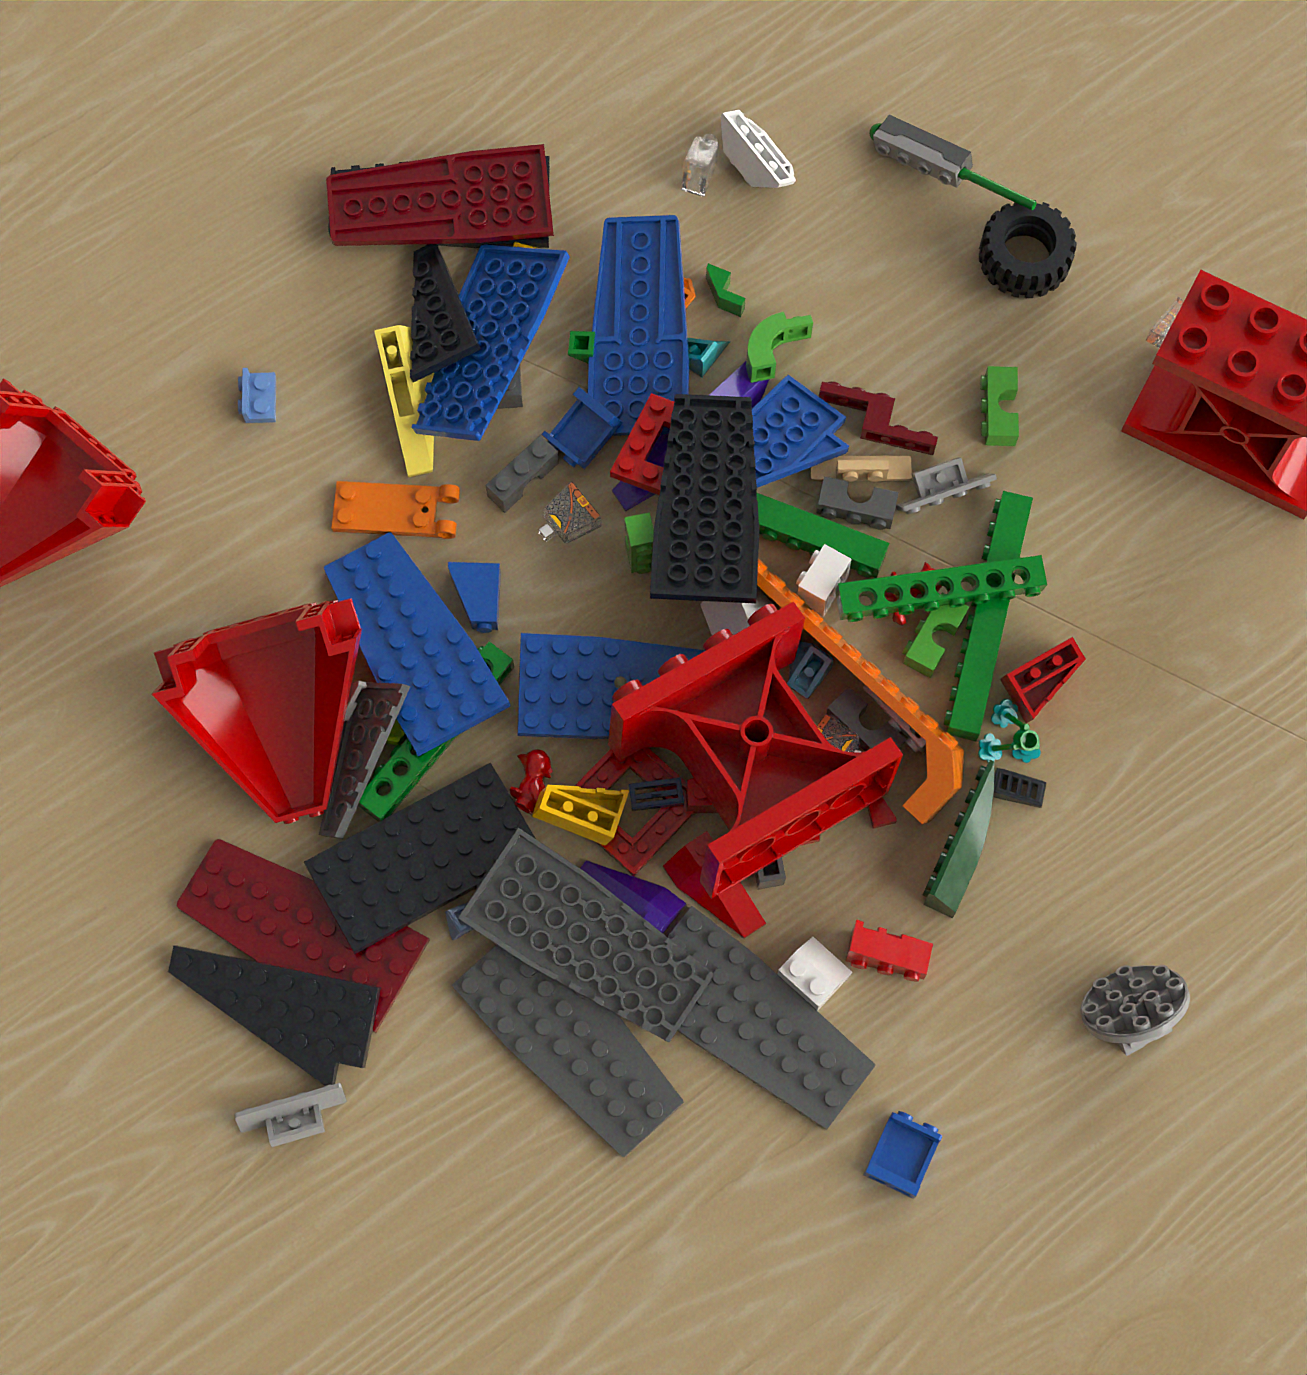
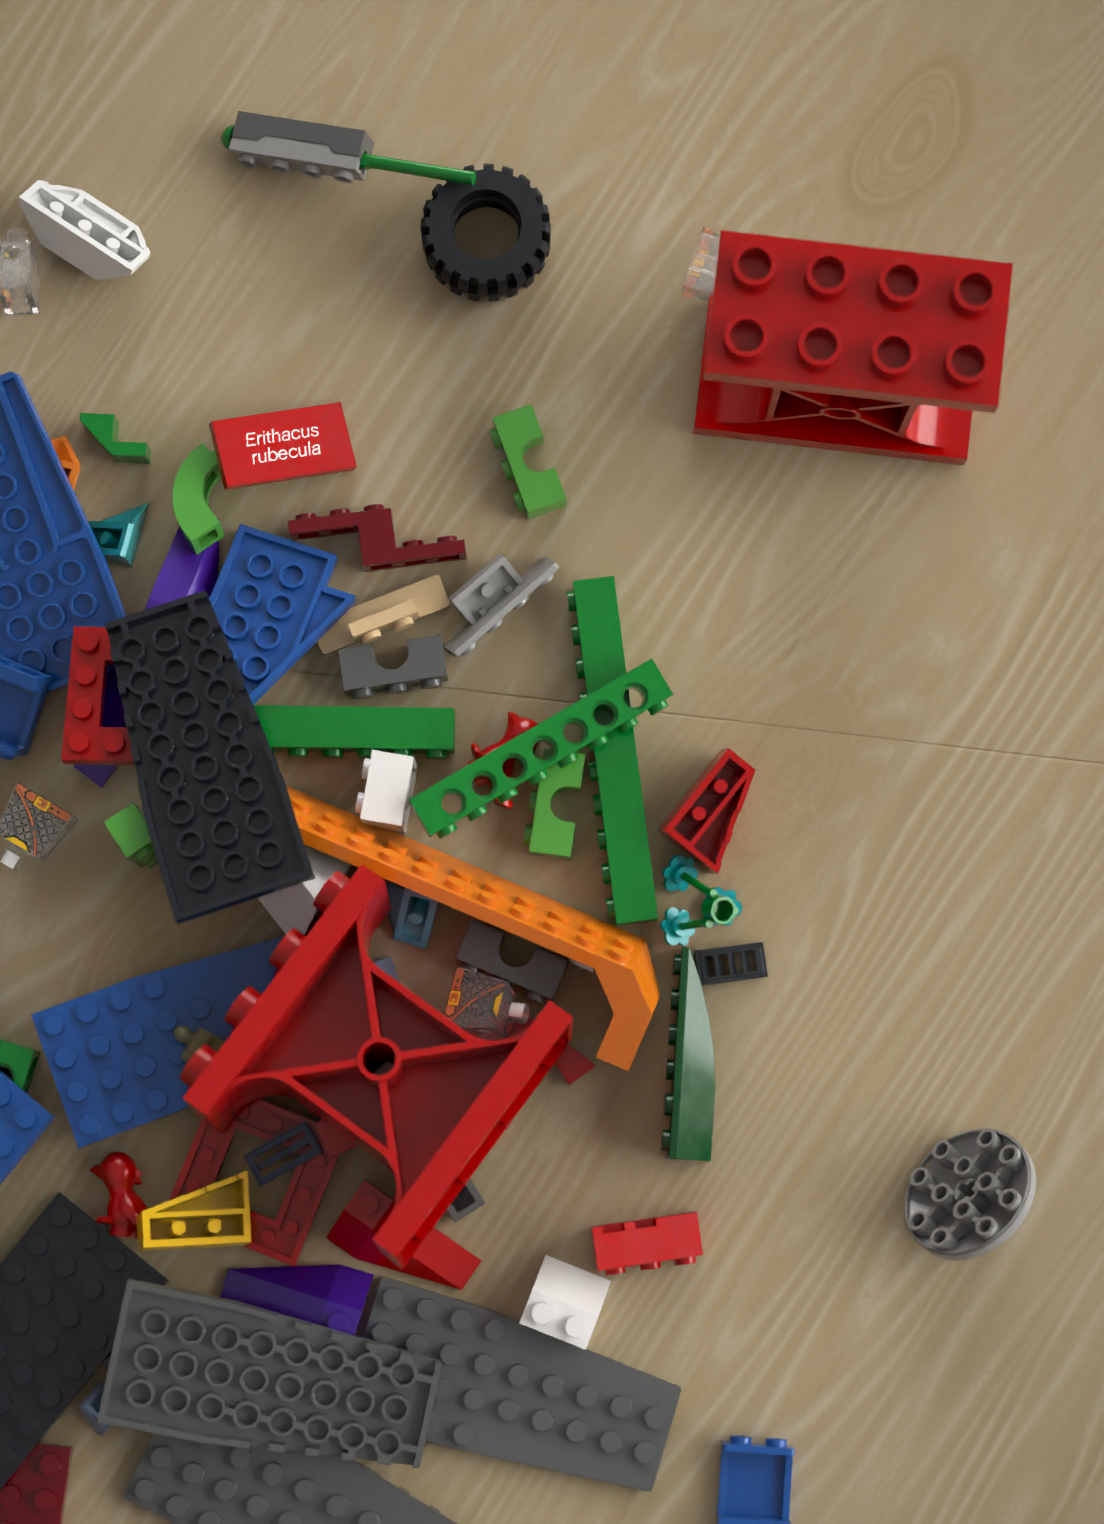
camera: 20 degrees left, 10 degrees up
(836, 333) = (282, 445): none -> red tile

